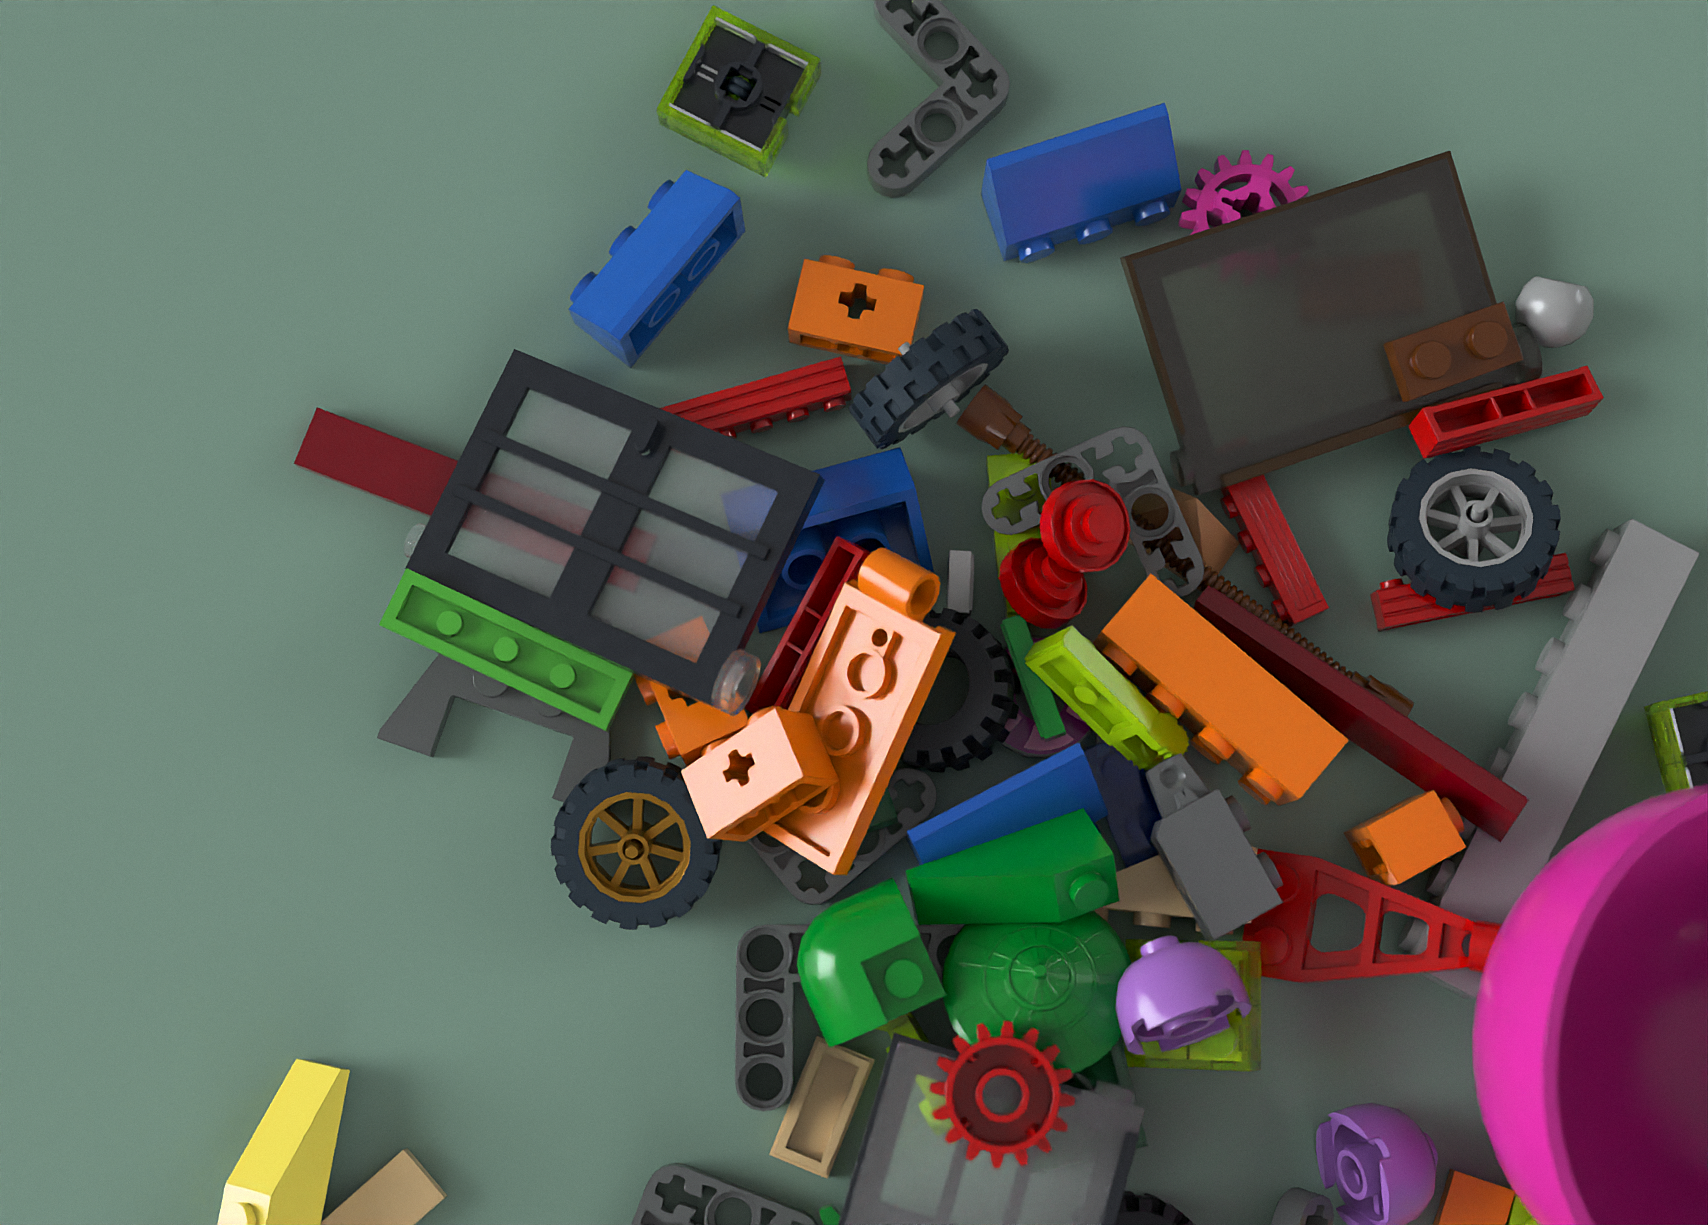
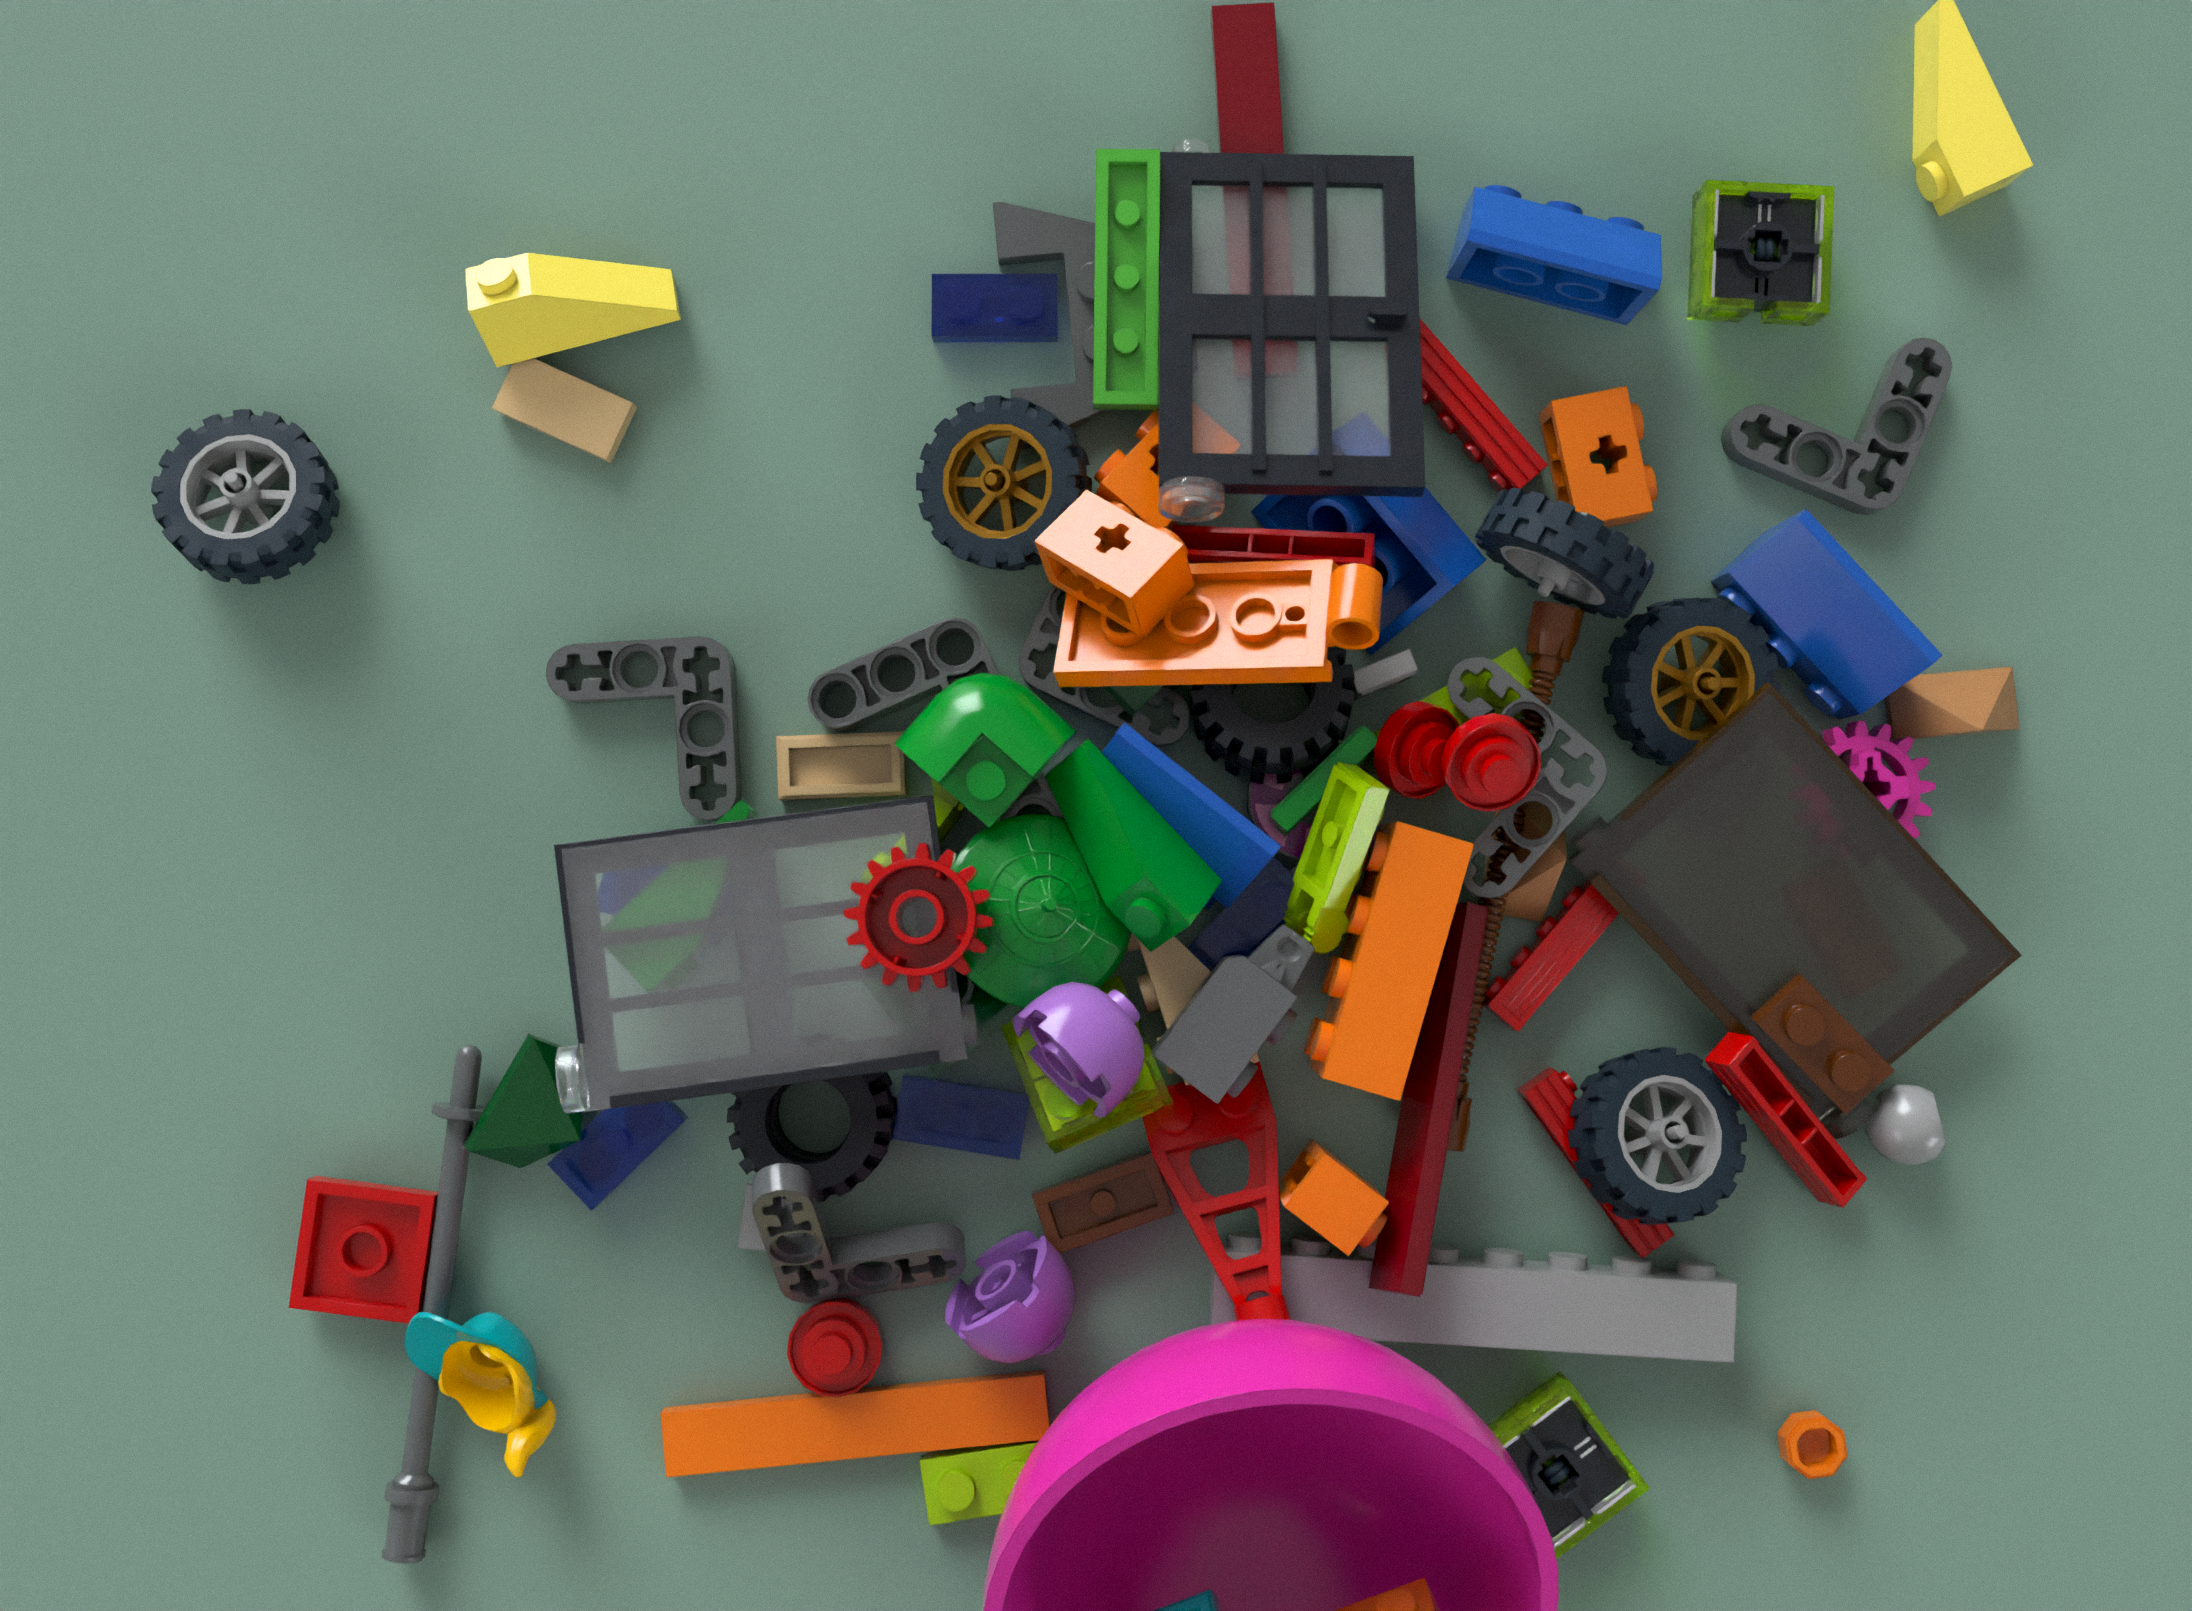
camera: 65 degrees right, 5 degrees up
(471, 778) = (994, 308): none -> clear blue plate
(1047, 354) = (1639, 660): none -> black wheel
(1189, 1140) = (961, 1116): none -> clear blue plate
(1206, 104) = (1954, 704): none -> medium nougat slope
(1322, 1046) = (1102, 1202): none -> reddish brown plate

